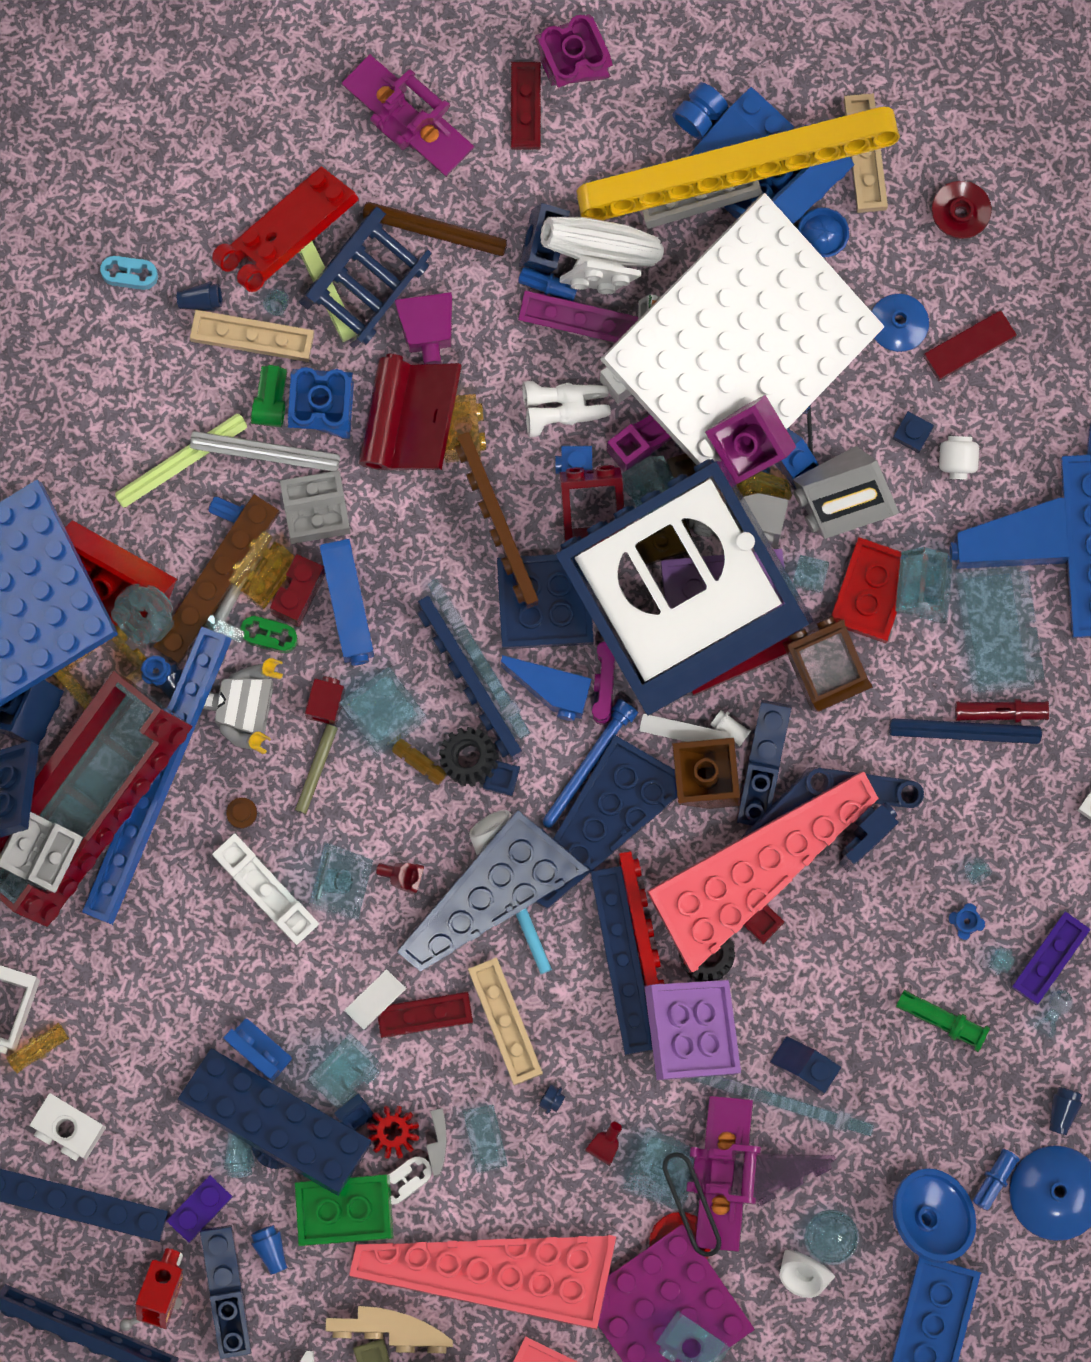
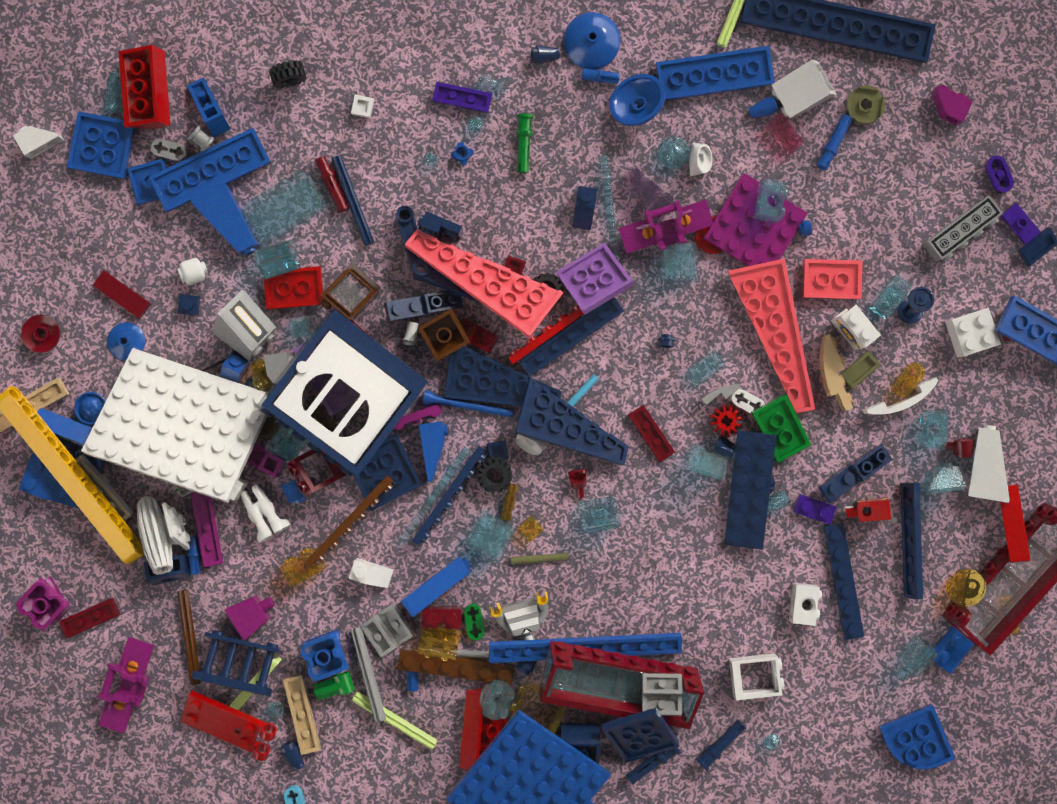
camera: 115 degrees left, 10 degrees up
(37, 1048) = (767, 641): clear yellow pin -> none
(152, 663) = (526, 682): blue plate -> none
(225, 628) = (483, 648): clear light blue tile -> none
(241, 813) = (584, 589): reddish brown plate -> none
(258, 1049) = (714, 517): blue bracket -> none
(265, 889) = (621, 555): white slope -> none
(269, 1247) = (819, 460): blue cone -> none
(324, 700) = (498, 571): dark red brick -> none
(366, 775) = (530, 528): none -> clear yellow plate
(375, 999) = (655, 465): white sticker -> none
(407, 518) = (370, 573): none -> white slope
(409, 415) = (309, 600): dark red door -> none
(505, 1021) = (635, 386): tan plate -> none
(605, 1144) = (678, 300): dark red piece -> none
(678, 730) = (424, 359): white sticker -> none
(680, 1209) = (704, 234): black piece -> none
(683, 825) = (479, 336): none -> dark red slope
(696, 114) = (50, 514): blue wheel -> none
(751, 439) = (236, 393): magenta slope -> none

